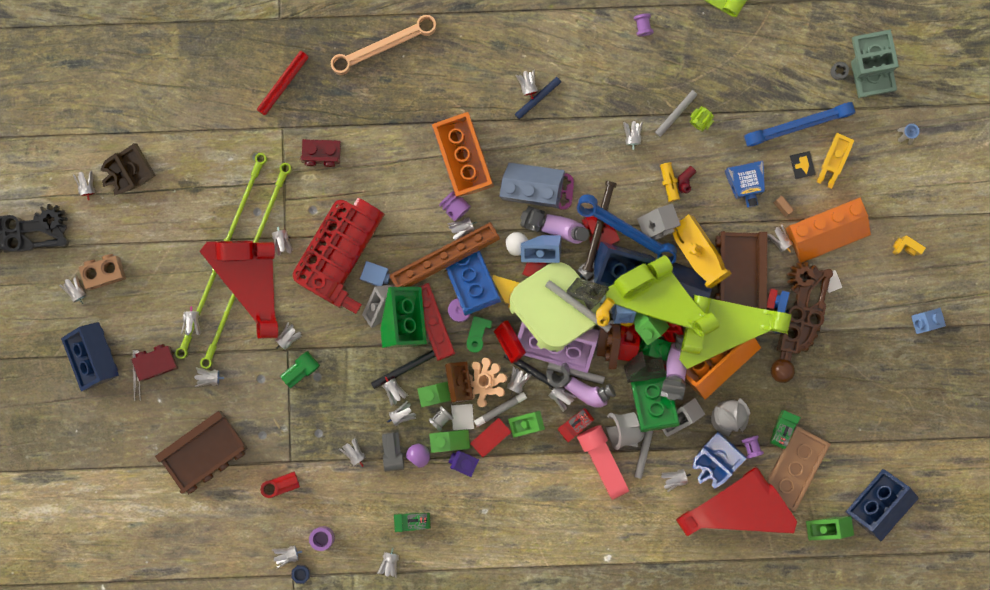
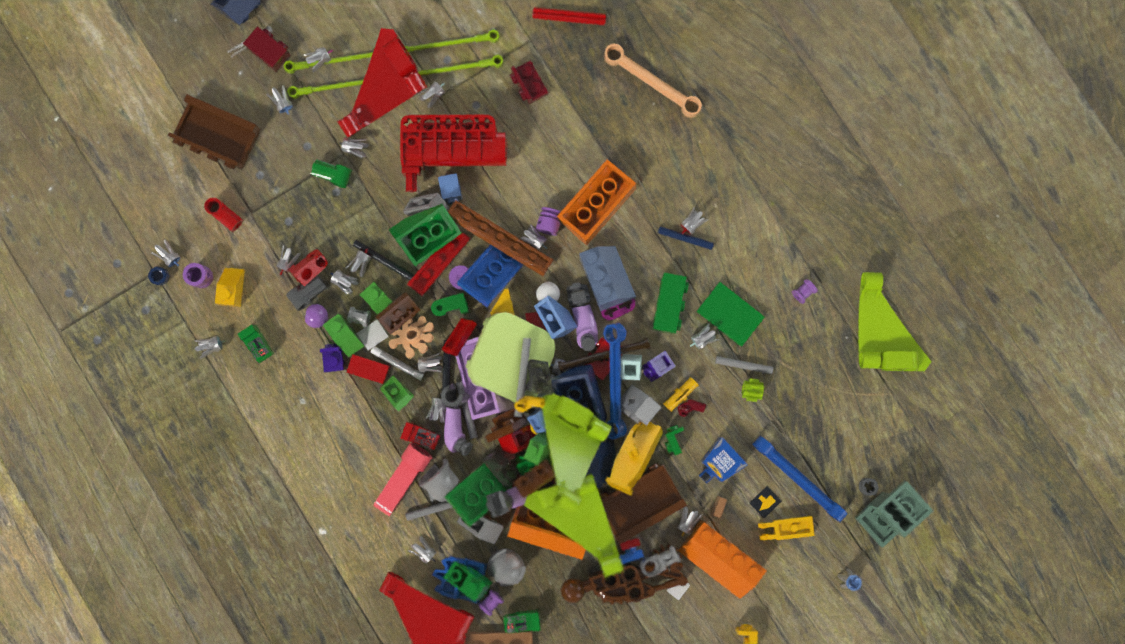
camera: 55 degrees right, 0 degrees up
(348, 516) = (230, 287): none -> yellow slope
(372, 437) = (309, 267): none -> red leg
(587, 145) = (670, 303): none -> green brick
(622, 209) = (631, 367): none -> light aqua brick
(626, 99) = (730, 314): none -> green tile
(635, 187) = (658, 366): none -> bracket
(671, 344) = (535, 478): none -> reddish brown bracket
(707, 214) = (672, 444): none -> green bracket
(723, 453) = (468, 580): none -> green slope
(801, 281) = (661, 561): none -> light grey connector

